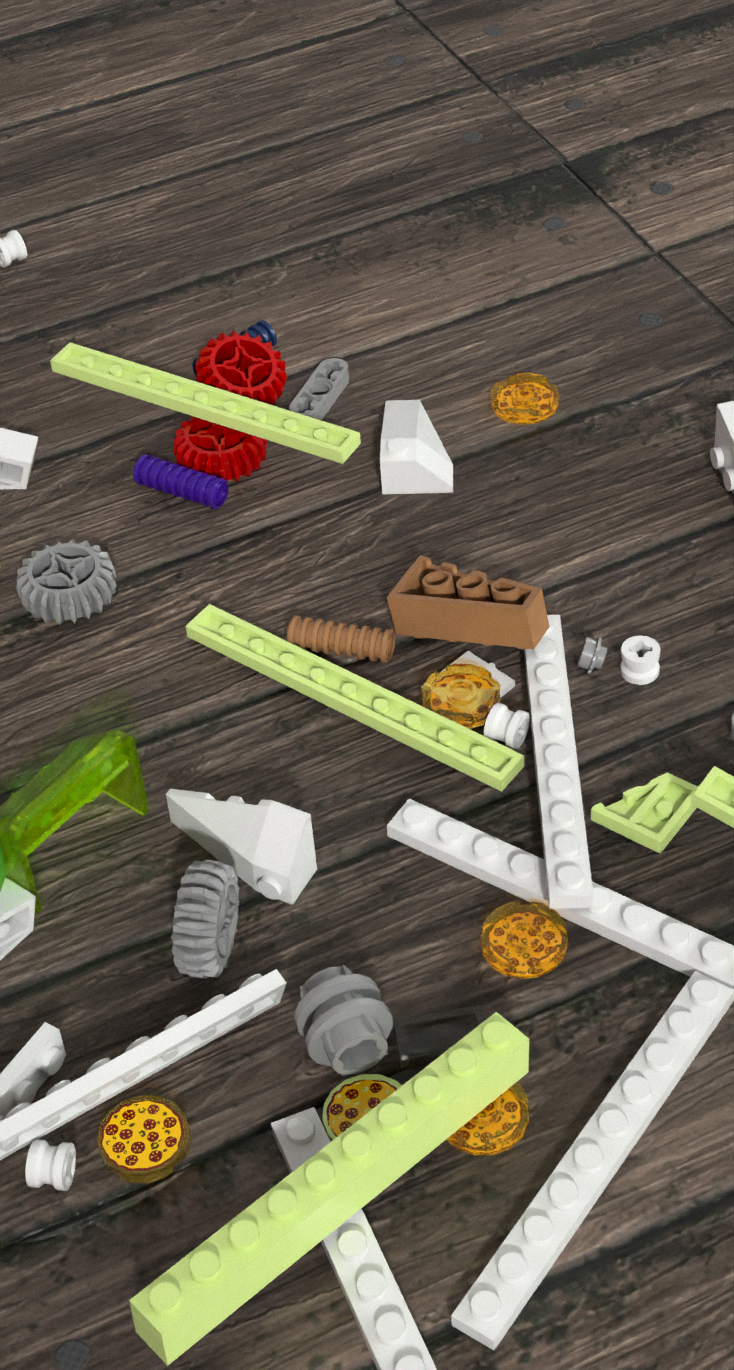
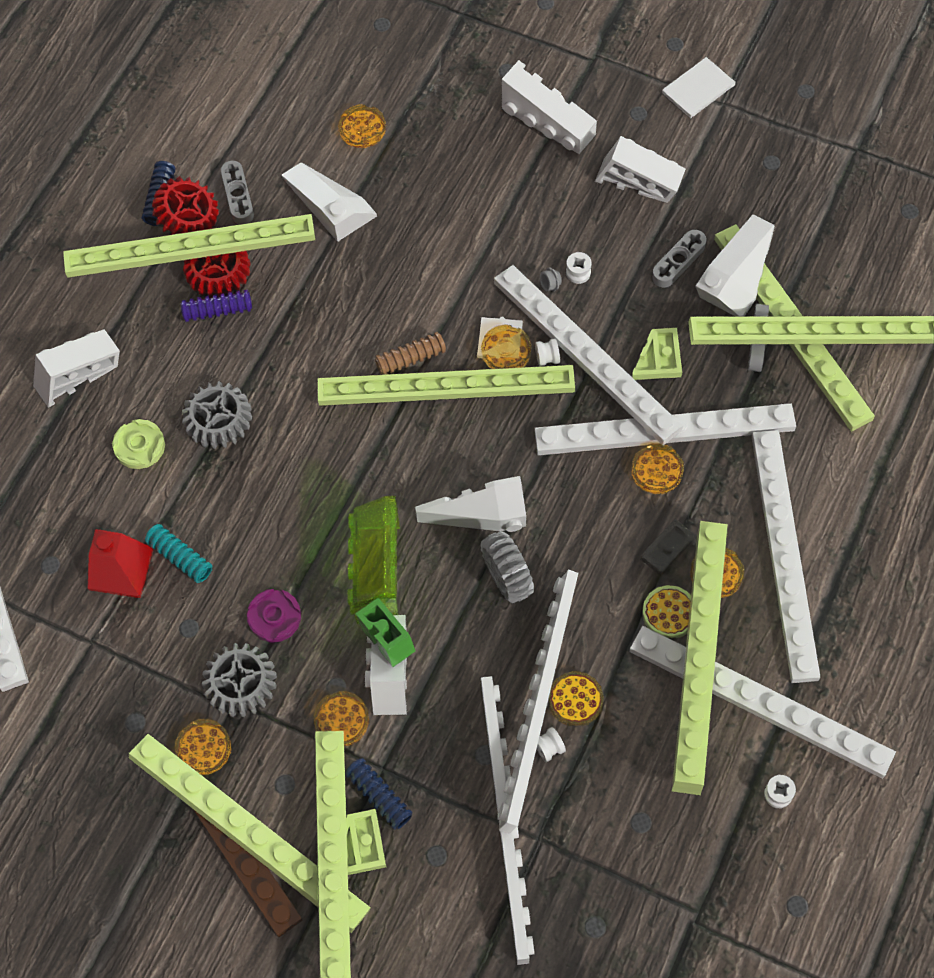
camera: 40 degrees left, 20 degrees up
(343, 1020) = (624, 573): light grey piece -> none
(467, 607) = (469, 294): medium nougat wedge -> none

